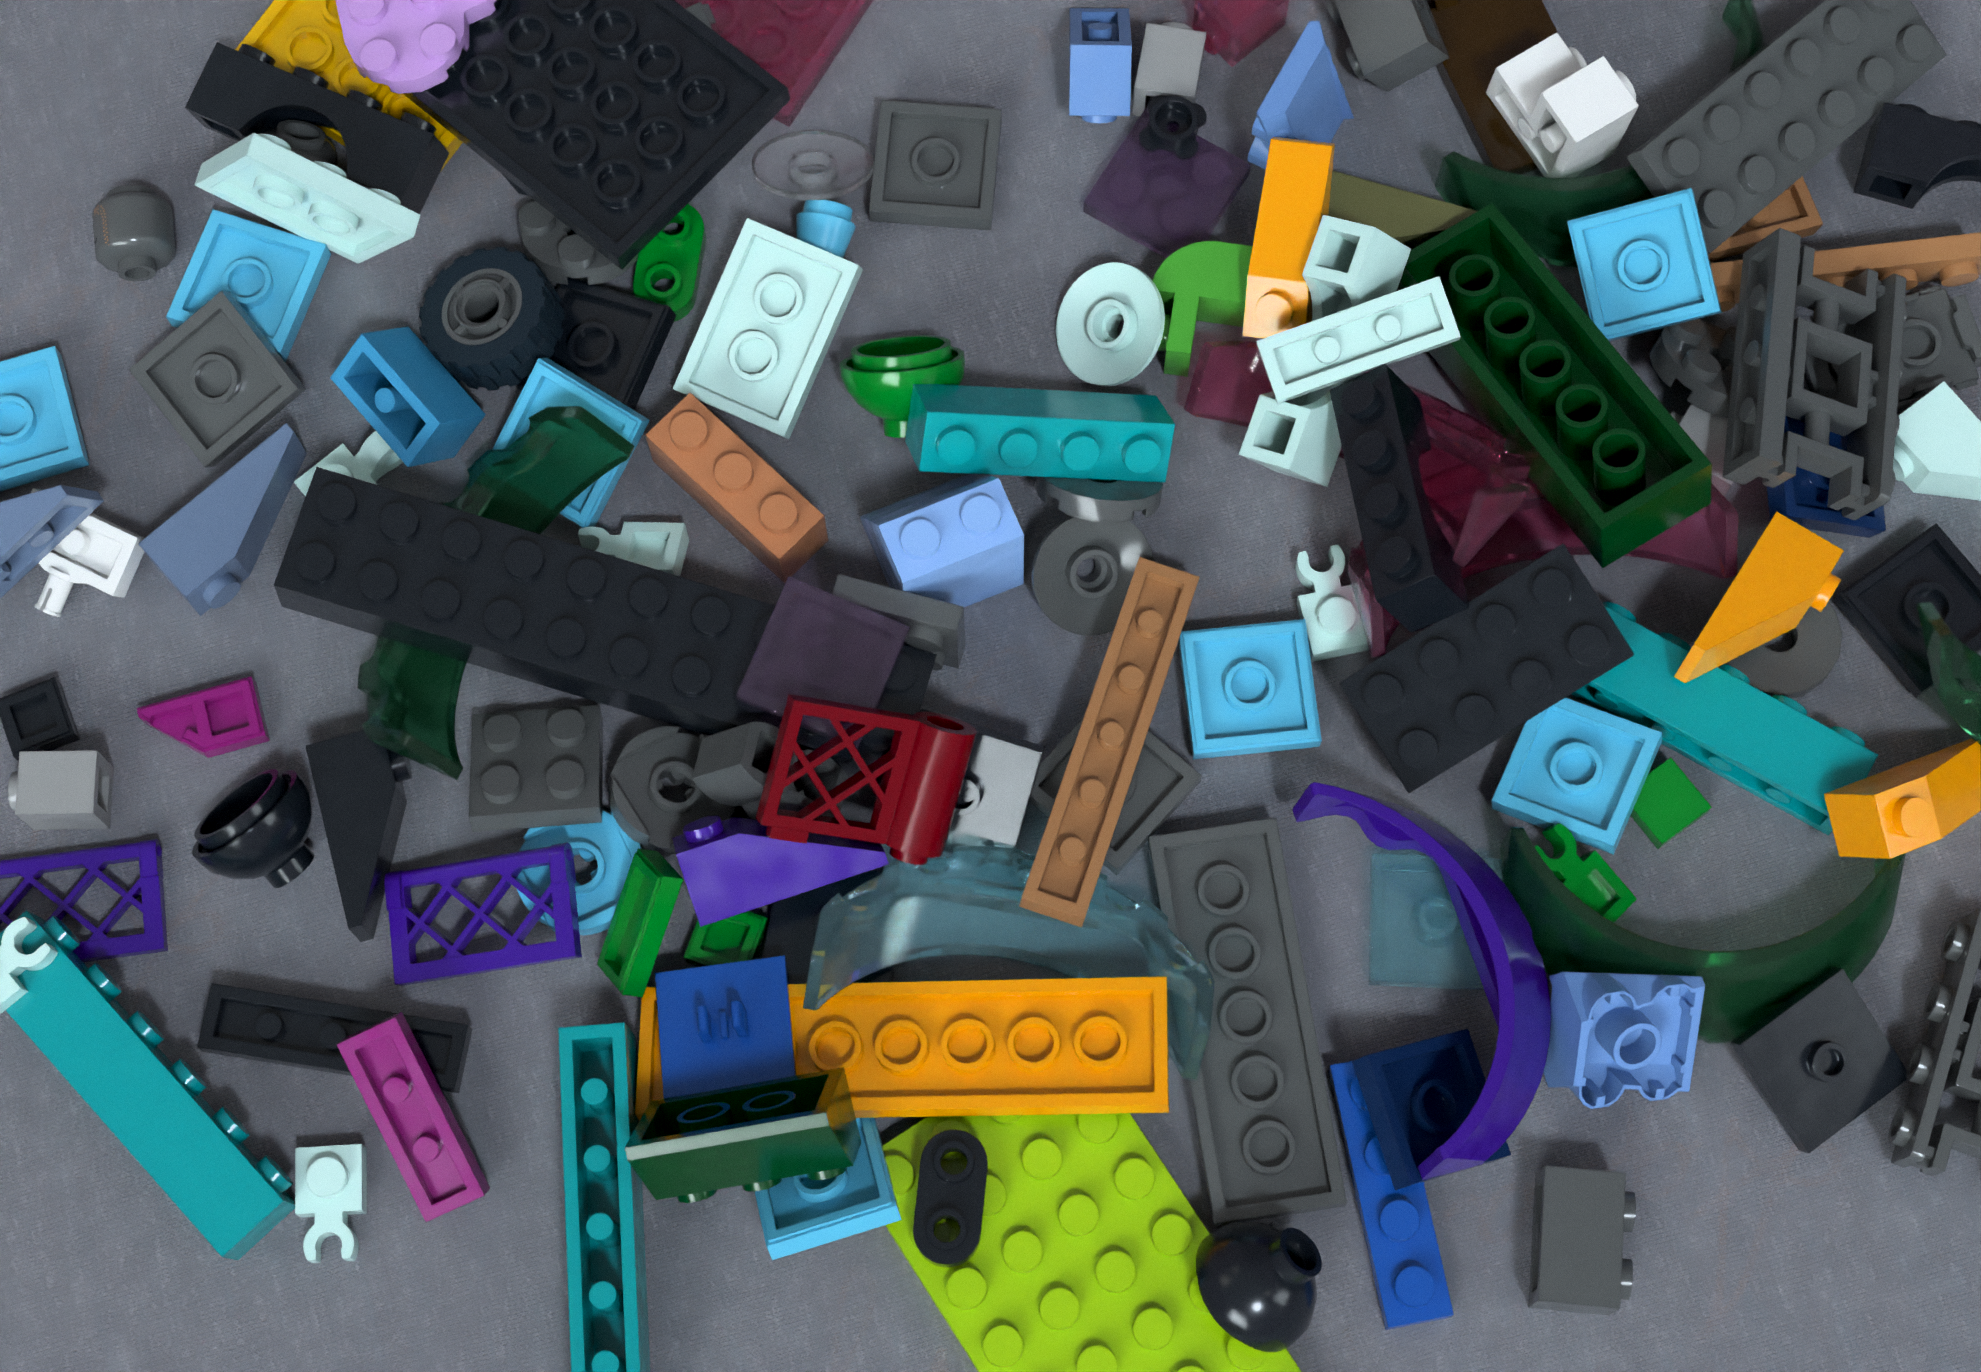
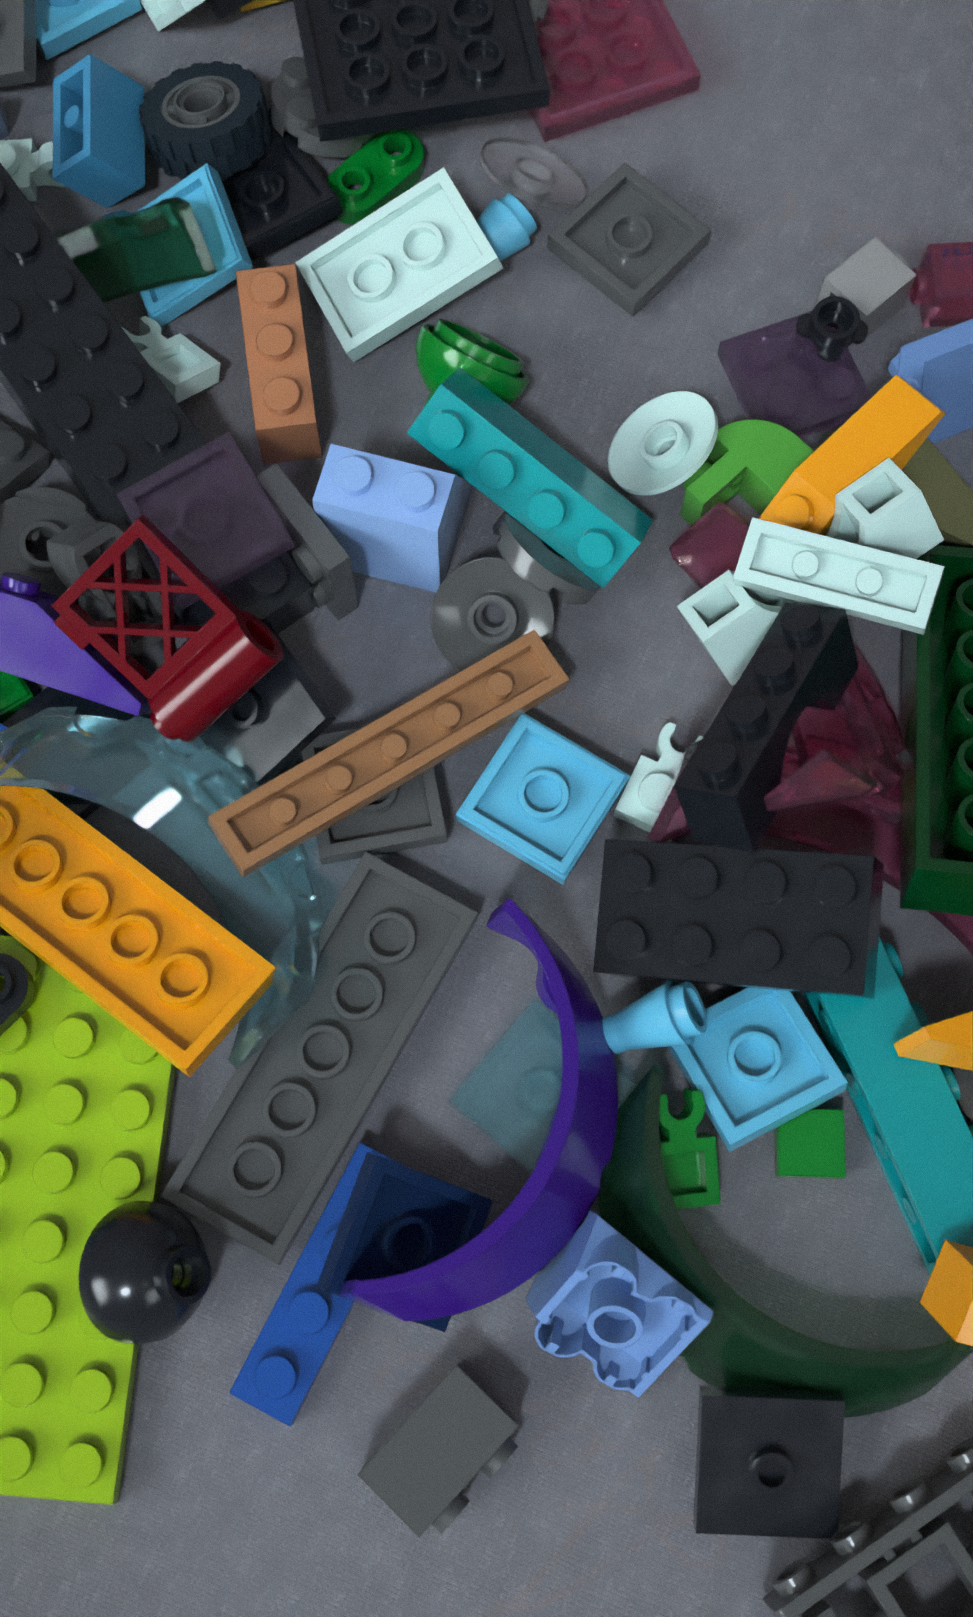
camera: 35 degrees right, 0 degrees up
(1099, 63) = (811, 246): medium blue slope -> none
(1484, 793) = (660, 1018): none -> medium azure cone

